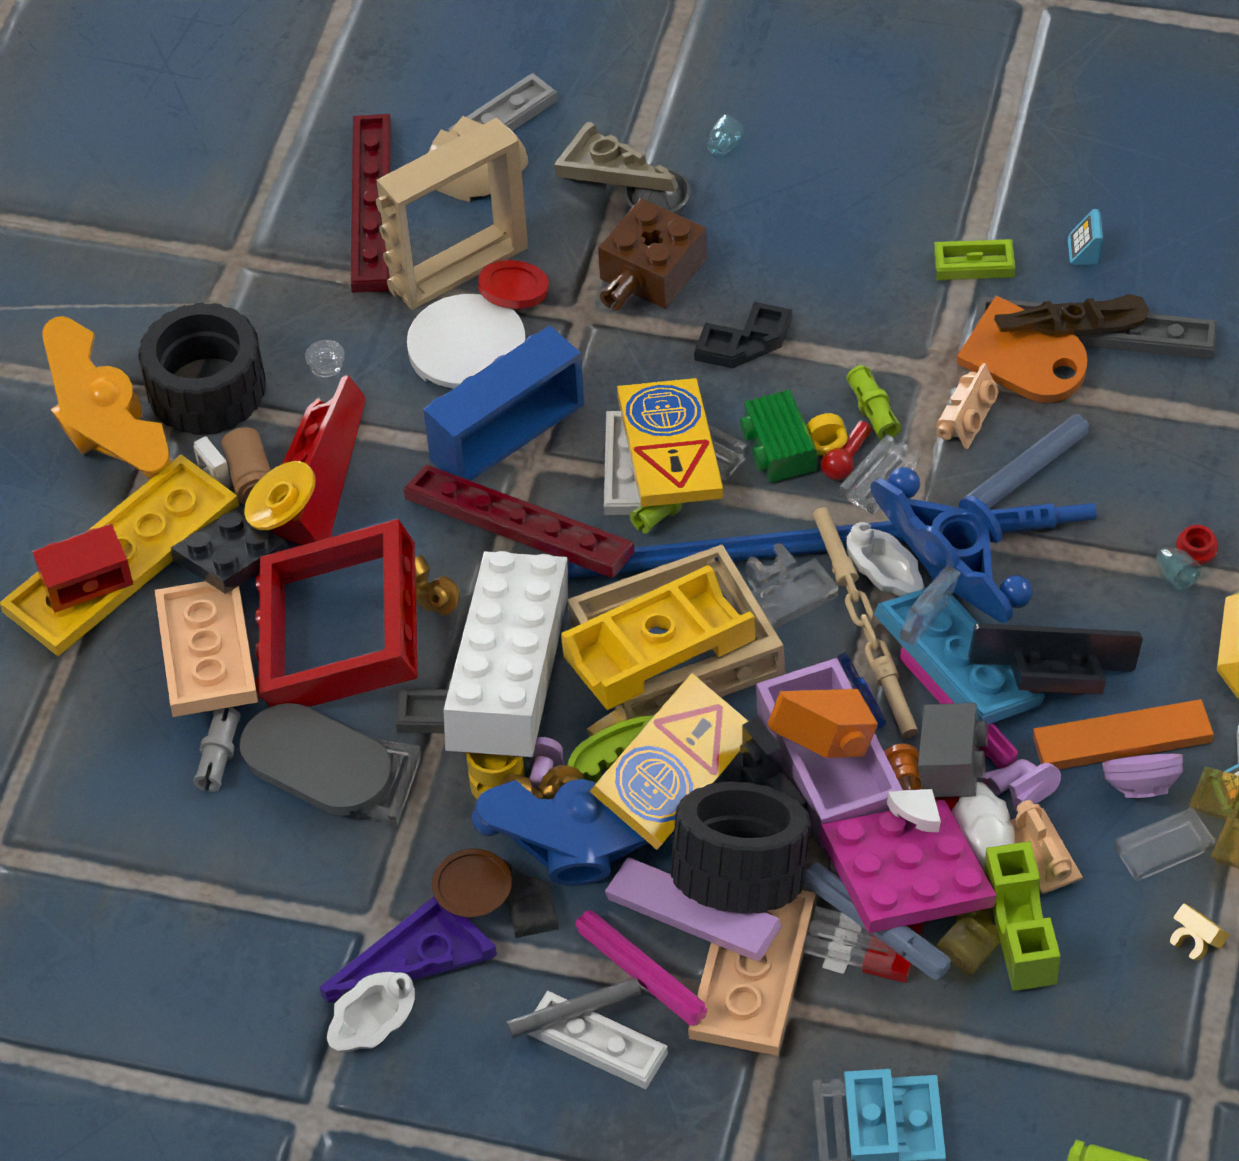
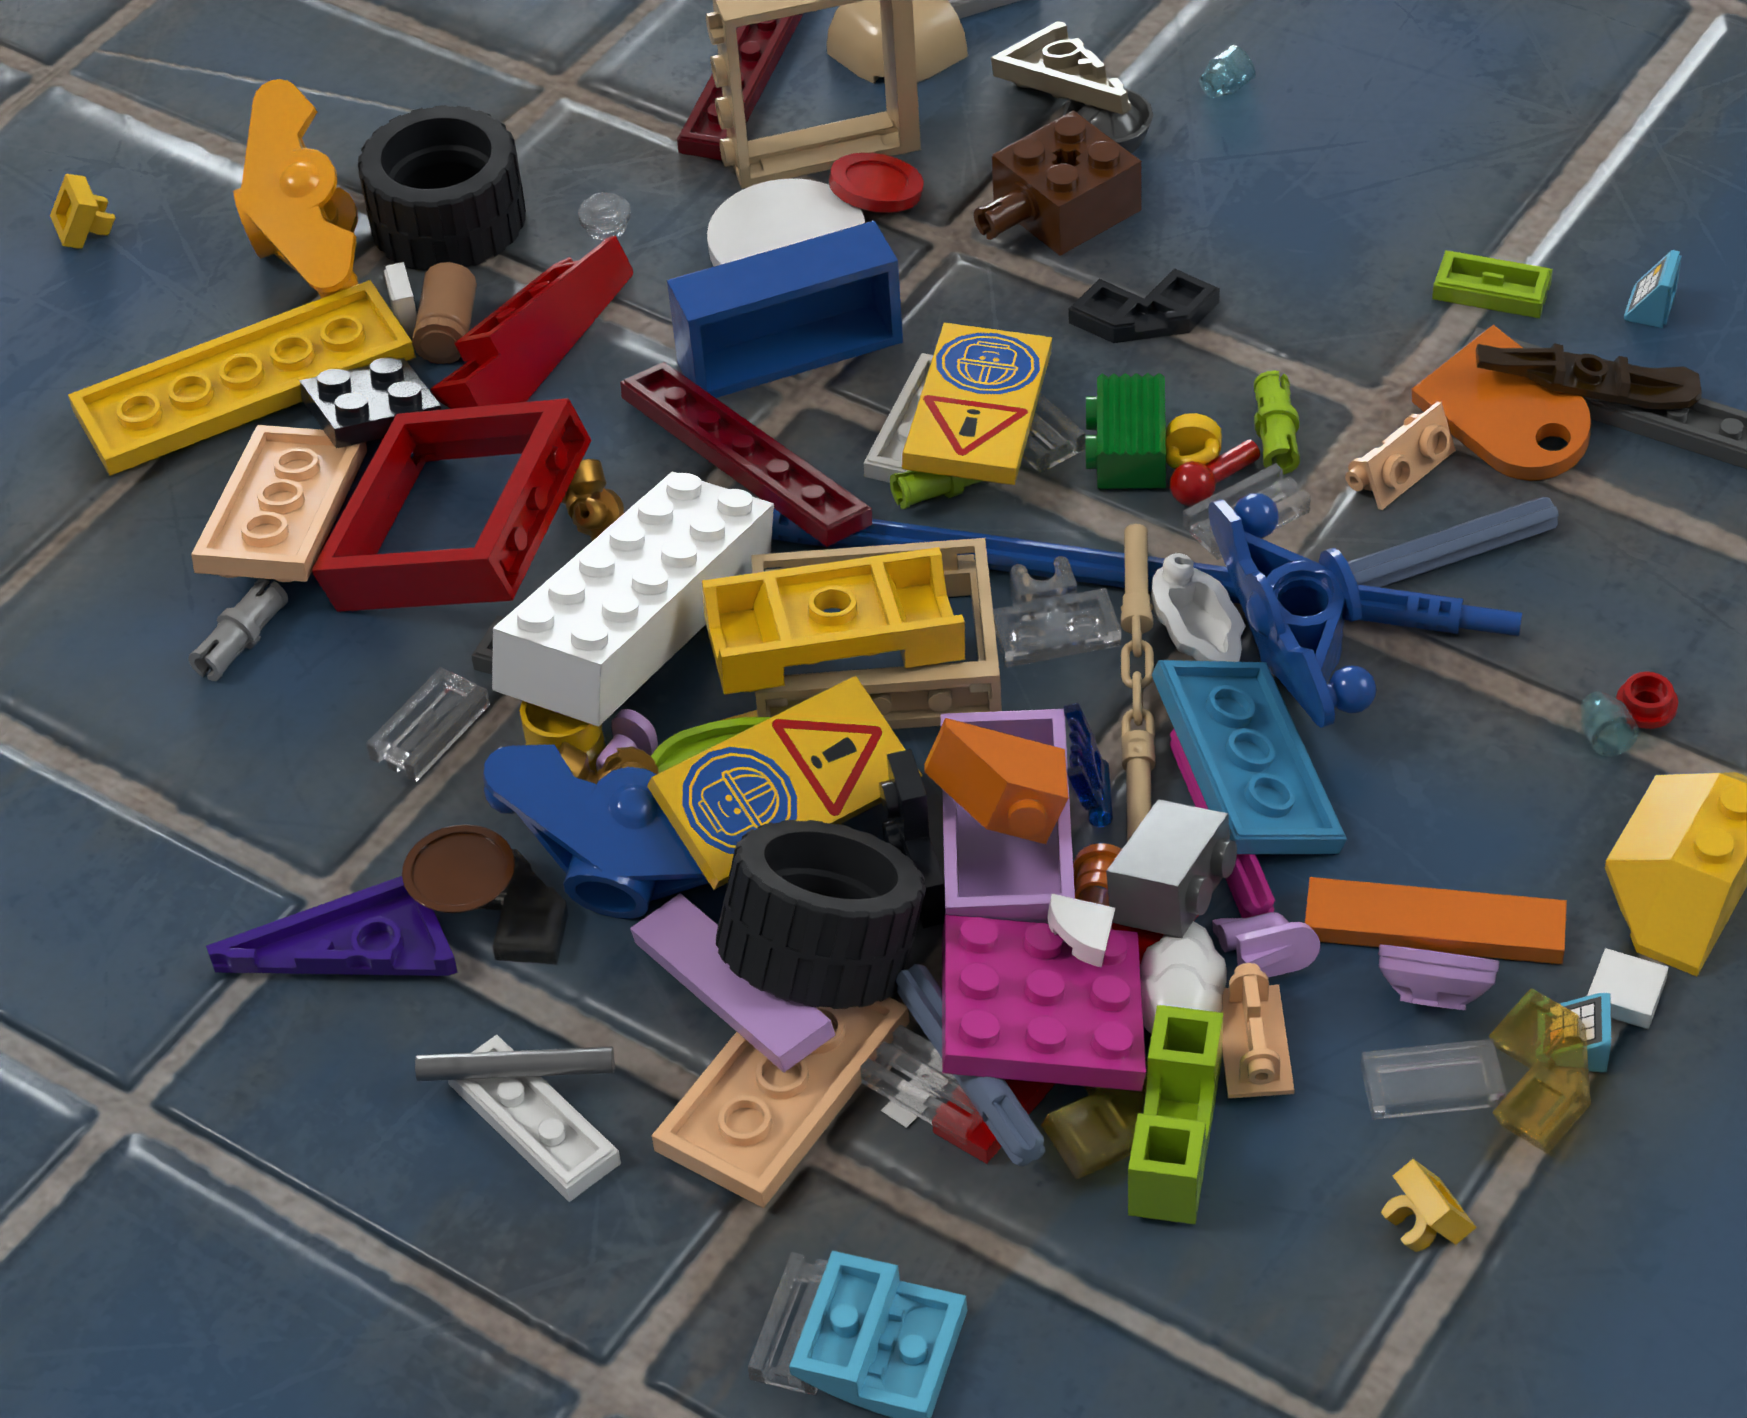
camera: 20 degrees right, 5 degrees down
(83, 567) = (176, 374): red brick -> none
(279, 495) = (453, 348): yellow dish -> none
(316, 759) = (350, 671): dark grey tile -> none
(371, 1011) = (254, 995): white arm -> none
(641, 966) = (629, 1039): dark pink axle -> none
(929, 605) = (1223, 676): clear tile -> none
(1056, 656) = (1378, 788): black bracket -> none

